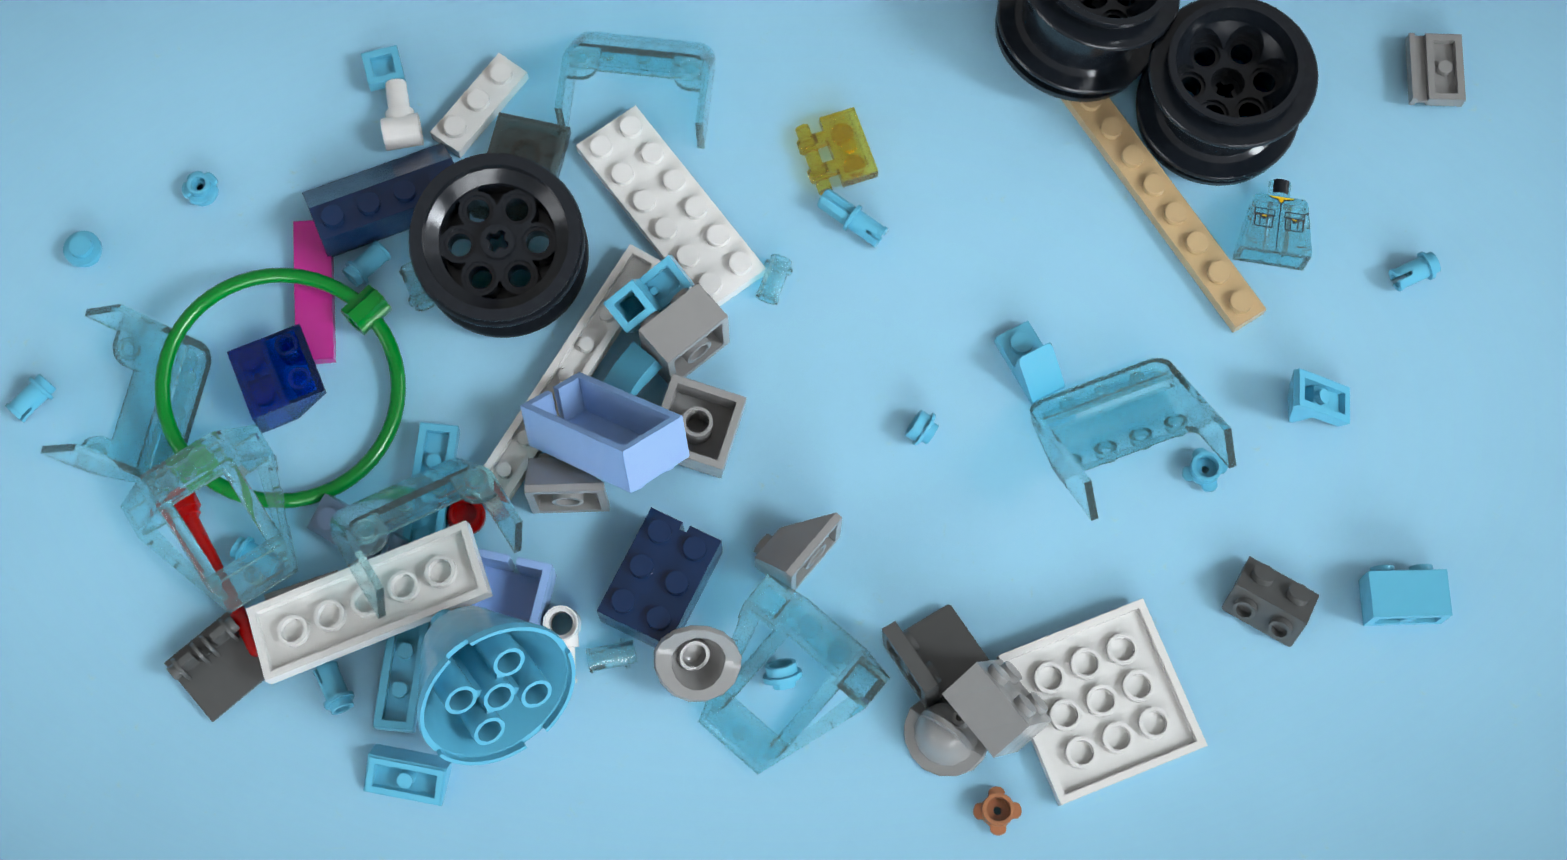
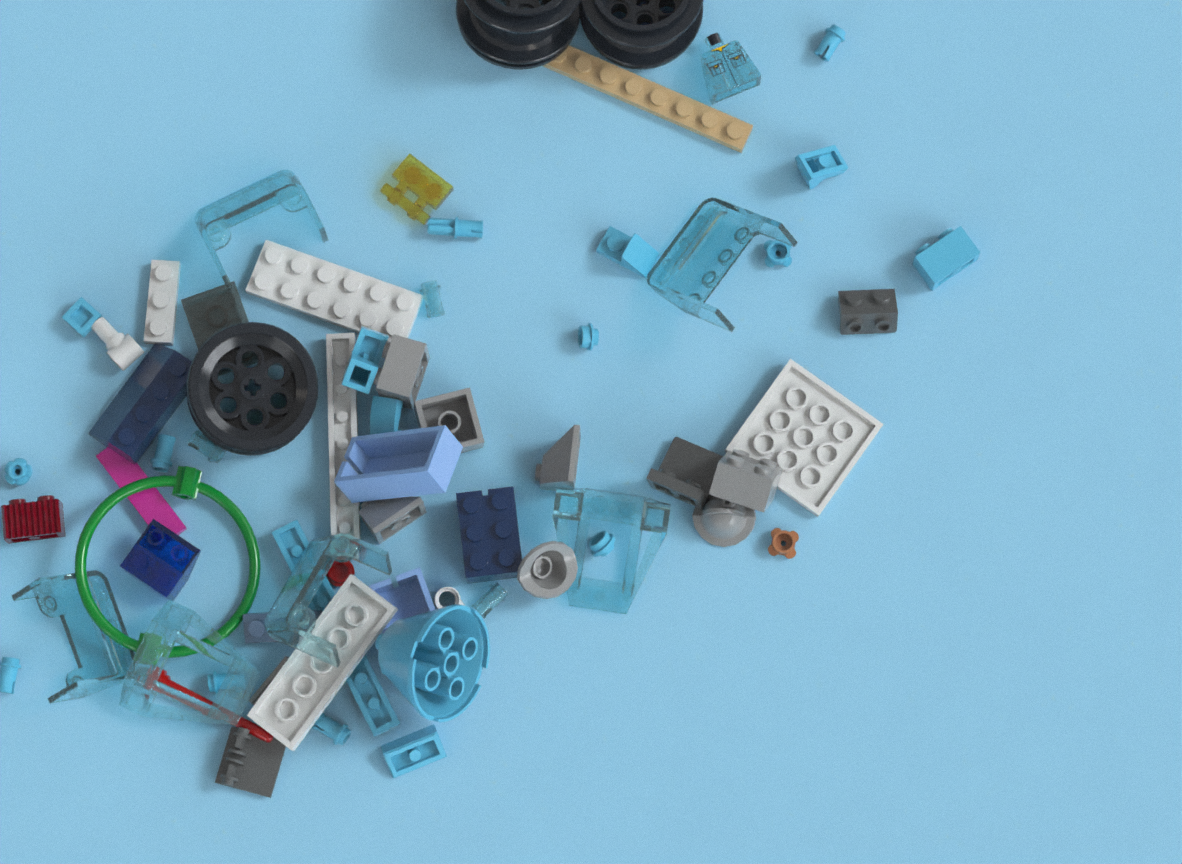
camera: 30 degrees left, 5 degrees up
(178, 247) = (33, 520): none -> dark red brick

